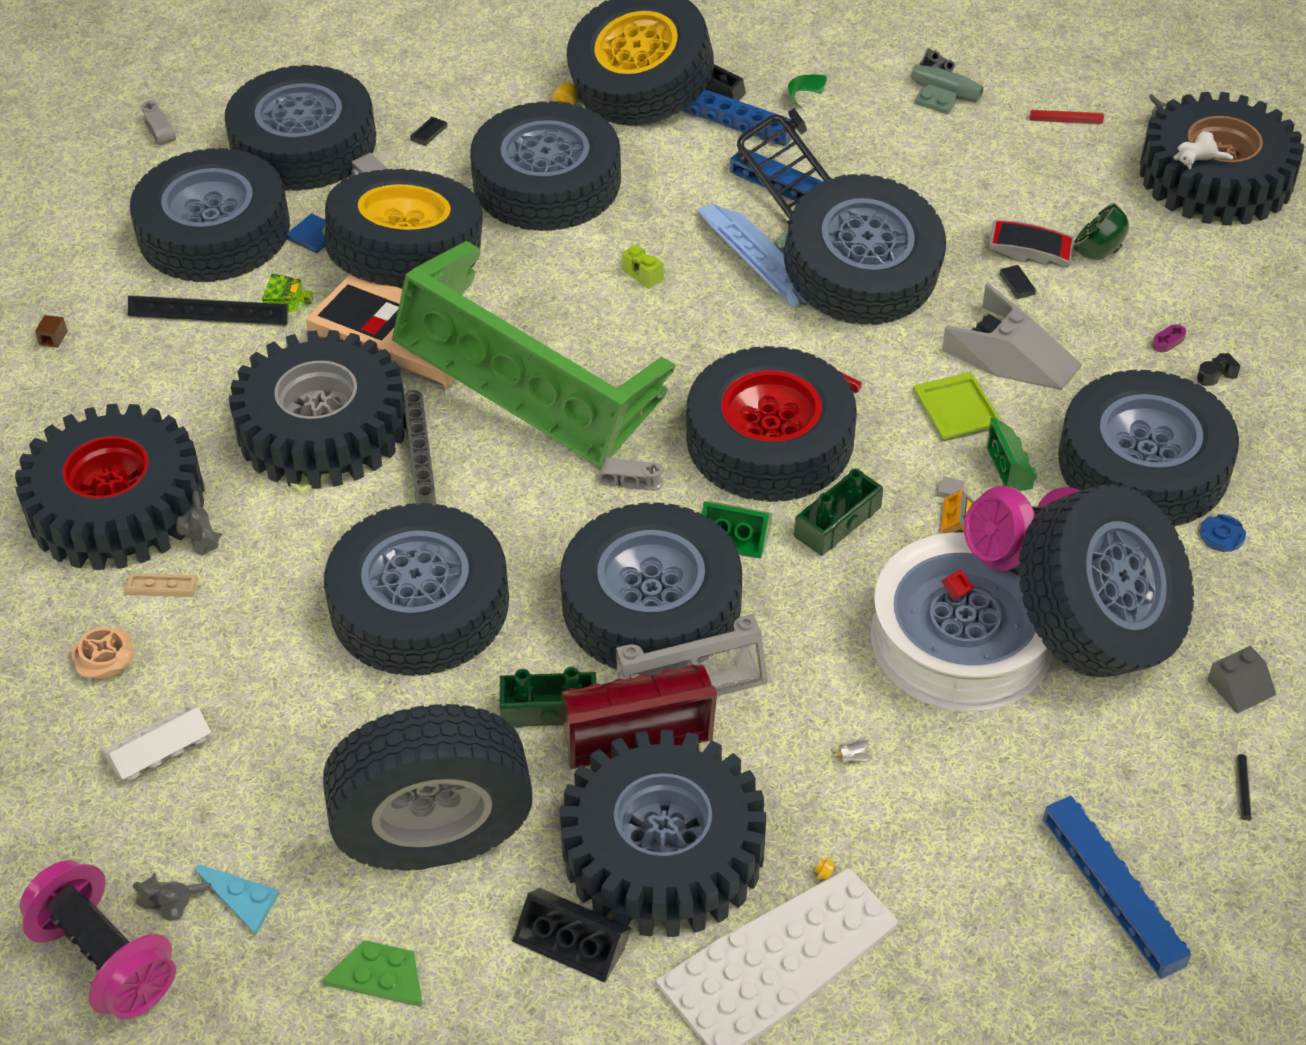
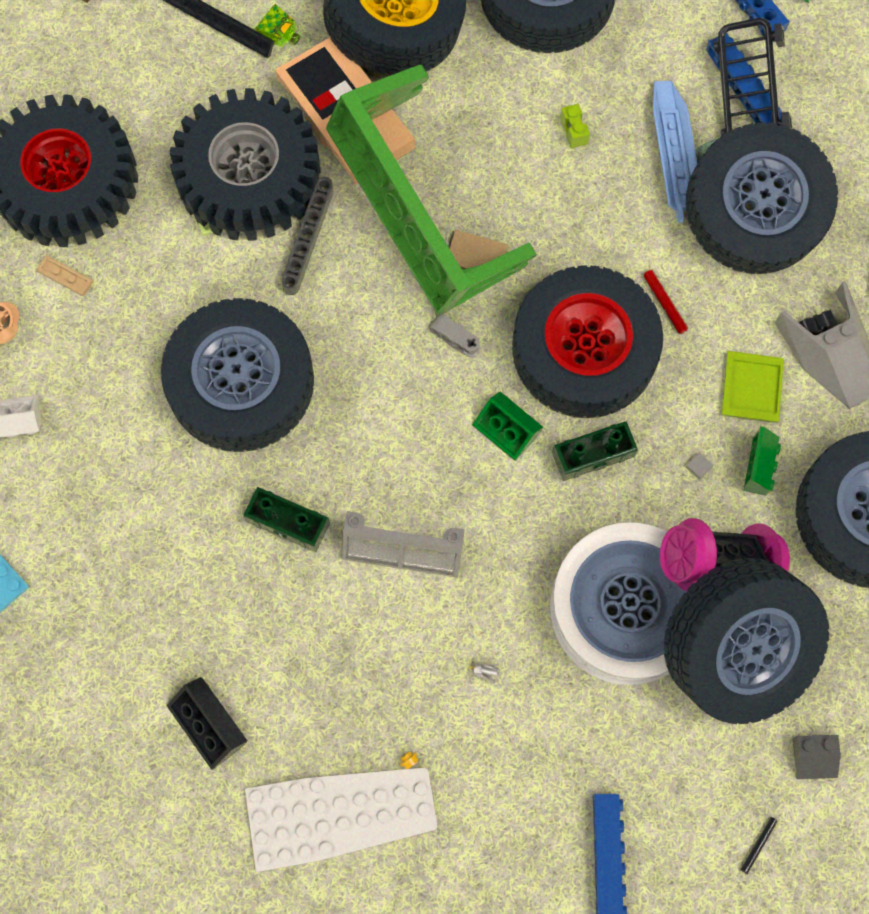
camera: 25 degrees right, 25 degrees up
(197, 524) = (108, 236): dark grey animal -> none
(378, 972) = (66, 686): bright green wing -> none
(426, 787) = (140, 581): black wheel -> none
(649, 580) = (409, 414): black wheel -> none
(651, 703) = (333, 571): dark red container -> none
(663, 880) = (262, 655): black wheel -> none
(955, 511) = (690, 495): light orange panel -> none
(957, 584) = (636, 576): red tile -> none

